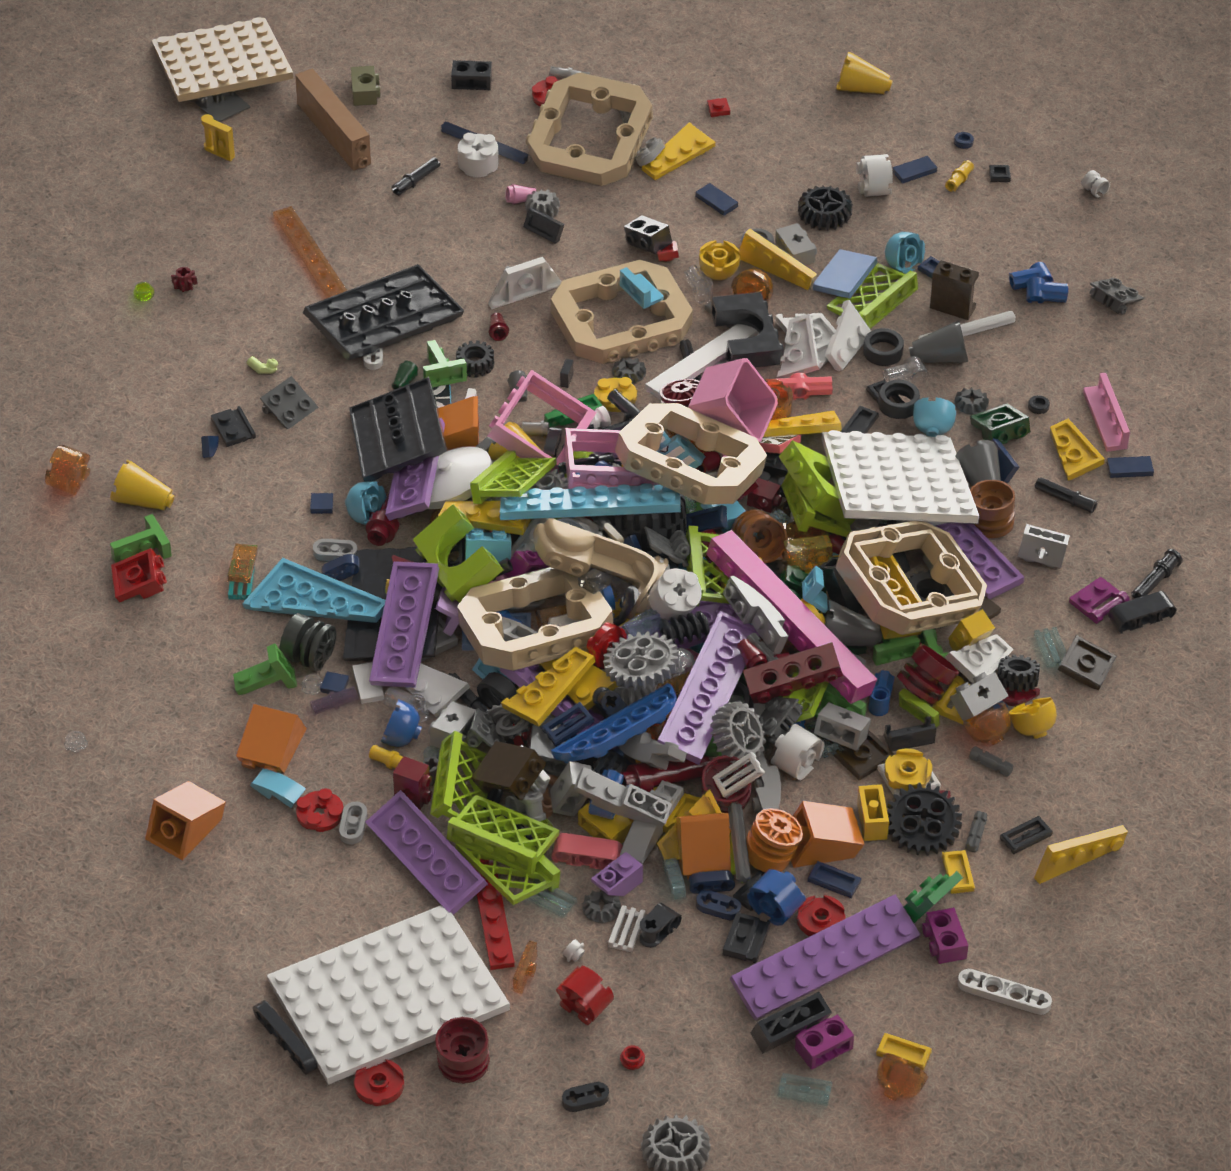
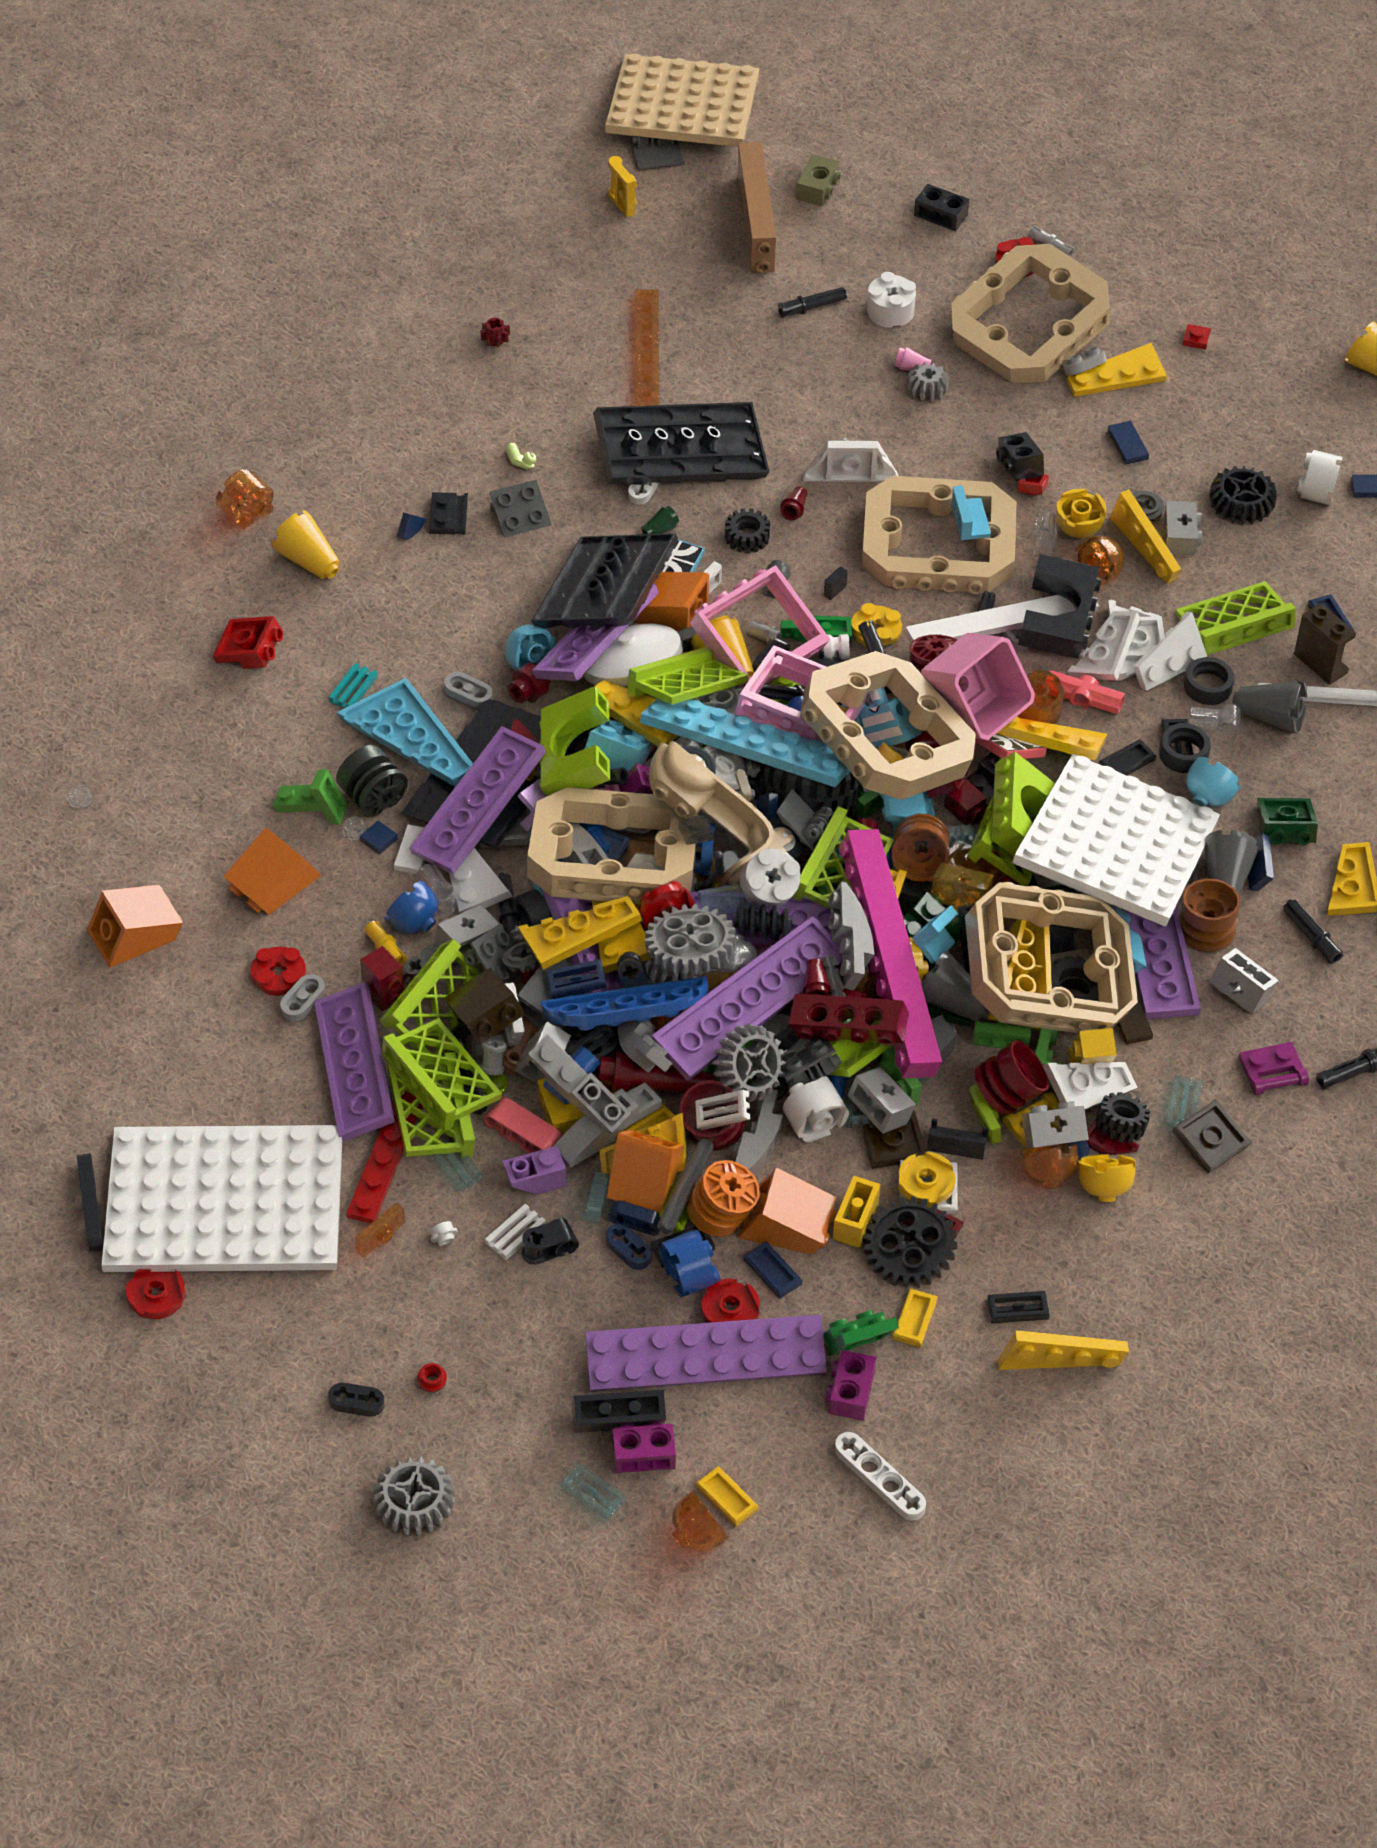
camera: 25 degrees right, 5 degrees up
(143, 291) = (446, 331): clear neon green plate -> none
(151, 538) = (275, 605): bright green bracket -> none
(242, 563) = (360, 668): clear orange plate -> none
(278, 785) = (250, 927): medium azure slope -> none
(321, 503) = (488, 632): dark blue tile -> none
(334, 700) = (365, 855): clear purple pin -> none
(342, 567) = (458, 712): dark blue beam -> none
(441, 369) = (702, 533): bright green bracket -> none
(462, 1038) = (253, 1280): dark red wheel -> none
(503, 150) = (922, 300): dark blue axle -> none
(543, 225) = (914, 405): black tile -> none
(584, 994) = (417, 1286): red brick -> none
(592, 910) = (506, 1206): dark grey gear -> none
(639, 370) = (919, 605): dark grey gear -> none
(710, 518) = (873, 807): dark blue tile -> none
(746, 937) = (634, 1295): black plate -> none
(844, 273) = (1218, 579): medium blue tile -> none
(881, 694) = (954, 1079): blue piece -> none
(902, 248) = (1300, 574): medium azure cylinder -> none
(964, 404) = (1278, 788): dark grey gear -> none
(976, 831) = (964, 1280): dark grey axle -> none
(991, 761) = (1032, 1206): dark grey axle -> none
(1038, 404) = (1348, 813): black tile -> none
(1142, 611) = (1313, 1101): black beam -> none

